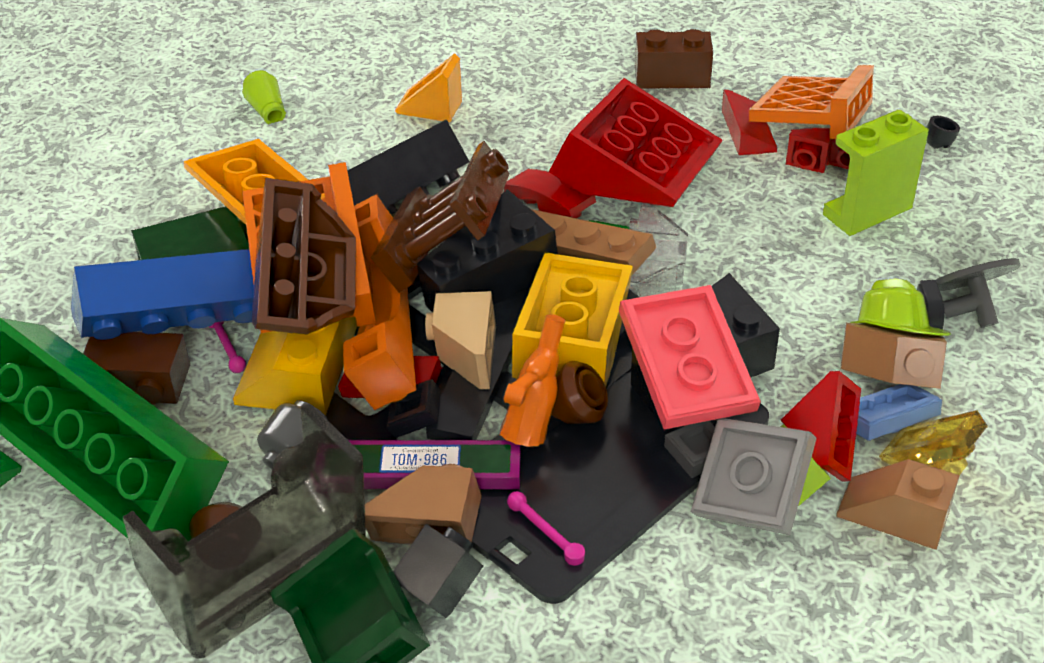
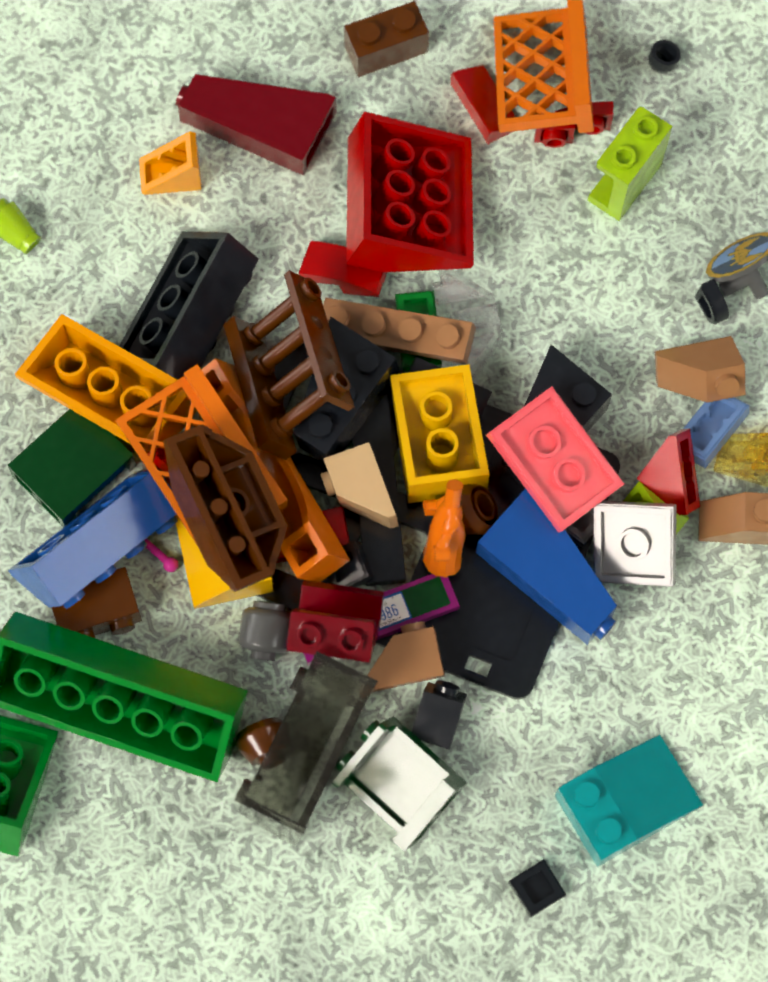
camera: 25 degrees left, 30 degrees up
(361, 415) = (336, 621): none -> dark red panel
(531, 83) = (260, 118): none -> dark red slope
(573, 552) = (524, 654): dark pink hinge -> none
(638, 473) = (548, 569): none -> blue slope
(896, 306) = (694, 332): lime piece -> none

